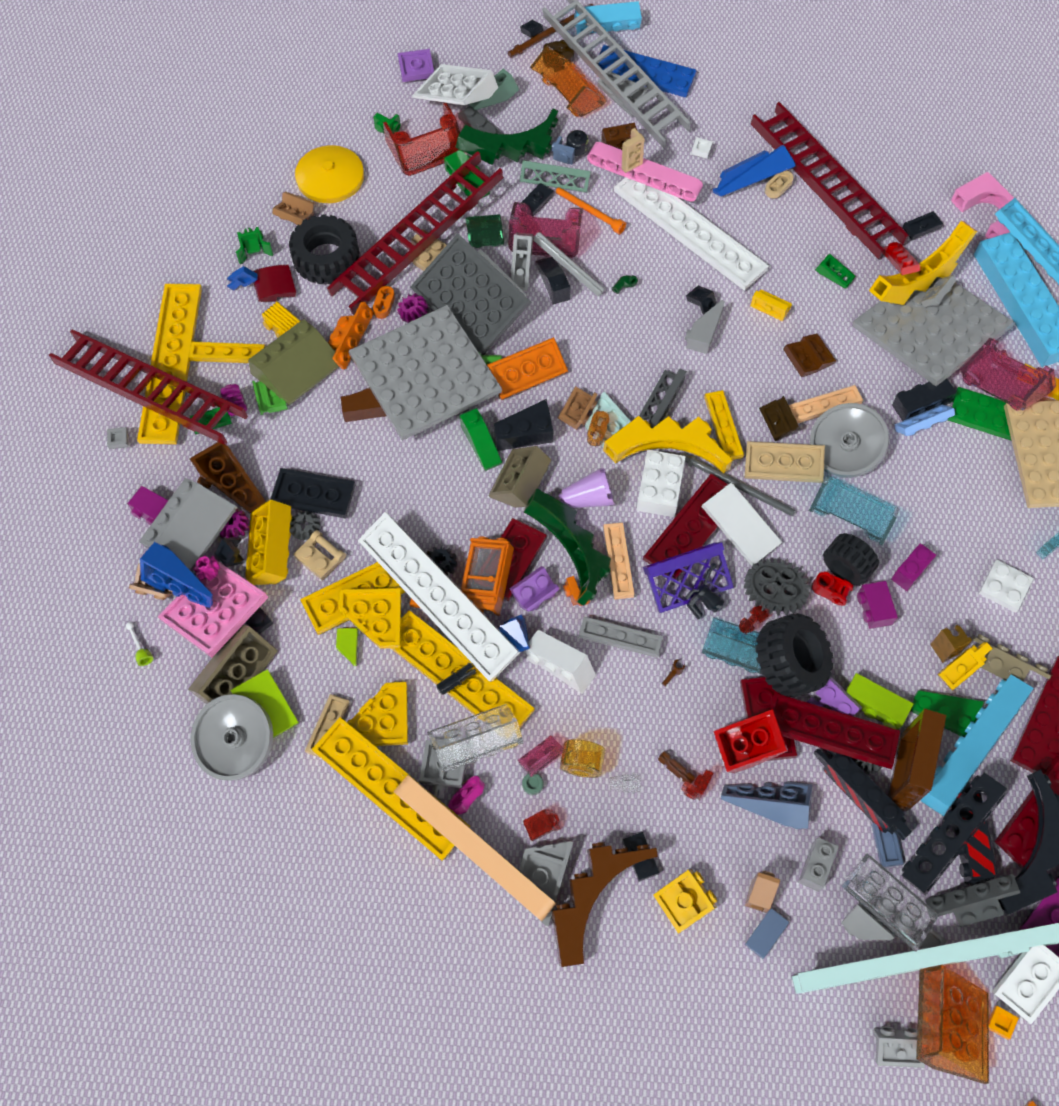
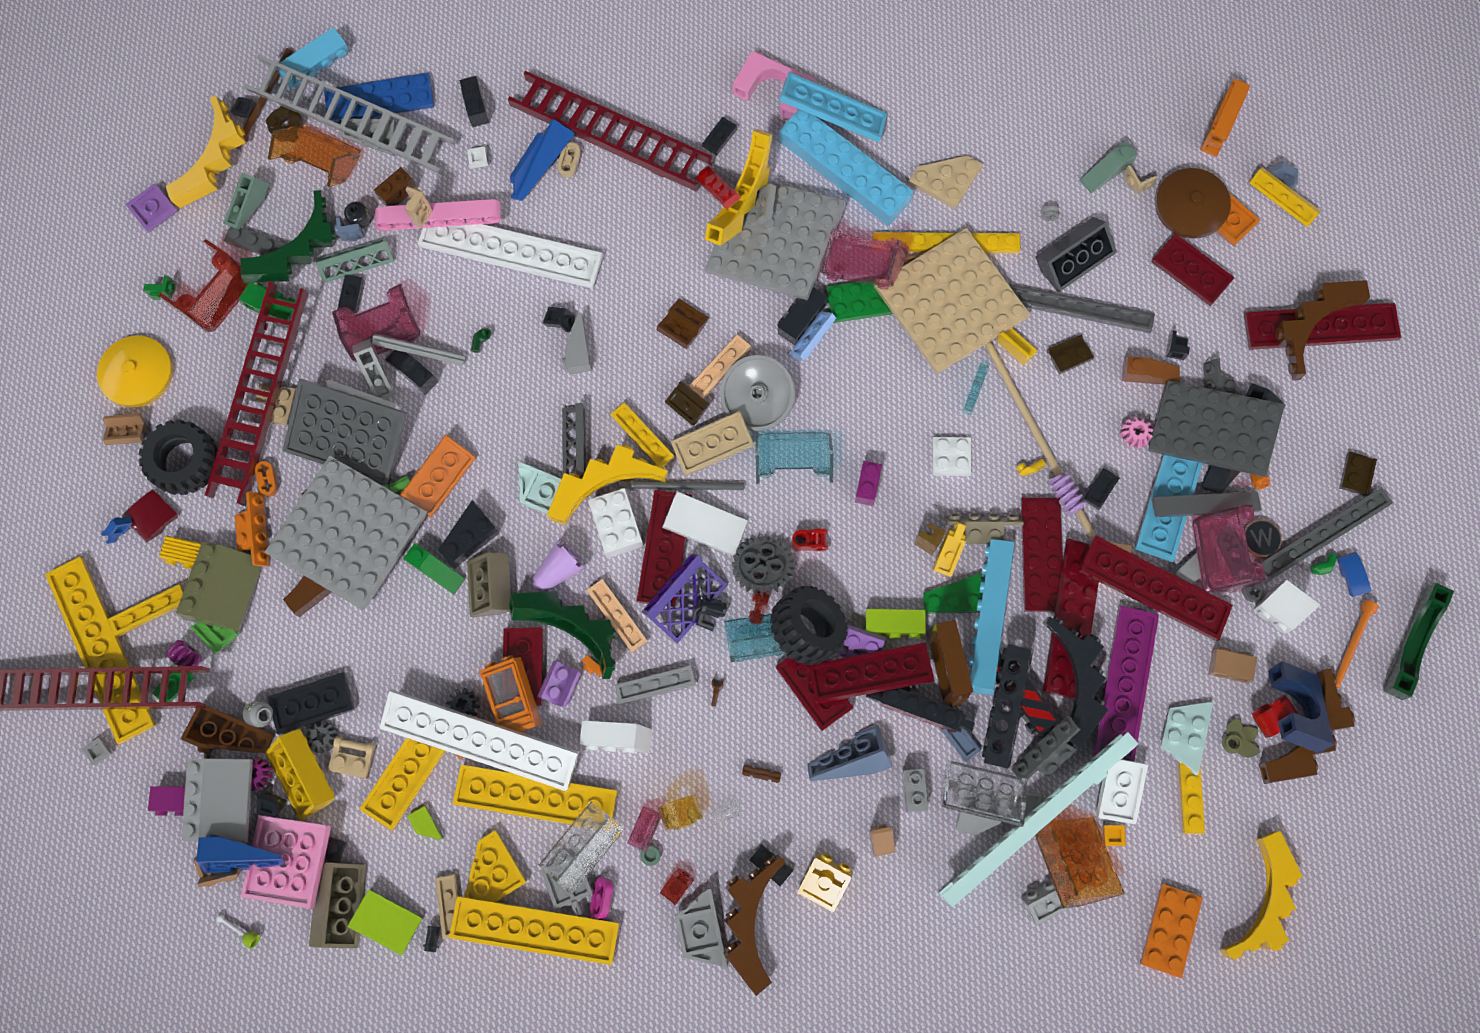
camera: 25 degrees left, 10 degrees up
(206, 568) = (259, 830): dark pink gear -> none
(231, 737) = (373, 966): light grey dish -> none
(251, 241) = (102, 485): green piece -> none
(264, 476) = (258, 713): none -> light grey head
(295, 745) = (432, 939): none -> black pin
(374, 613) = (433, 786): yellow plate -> none
(412, 307) = (298, 472): magenta gear -> none
(455, 679) = (536, 804): black axle -> none
(458, 85) = (207, 217): white slope -> none
(475, 848) = (632, 940): light nougat beam -> none
(485, 230) = (320, 354): clear green slope -> none
(489, 50) = (216, 157): none -> yellow arch
(516, 632) = (565, 733): slope -> none
(576, 408) = (503, 489): medium nougat bracket -> none
(595, 428) = (529, 503): clear orange beam -> none
(617, 225) = (441, 282): orange piece -> none
(701, 782) = (788, 775): clear red bracket -> none
(722, 107) = (473, 101): none -> black slope
(750, 742) = (810, 721): red slope -> none
(766, 933) = (902, 870): sand blue tile -> none
(770, 304) = (623, 290): yellow panel -> none
(827, 272) = (657, 230): green slope -> none
(851, 559) = (813, 508): black tyre -> none
(877, 604) = (854, 535): magenta brick -> none

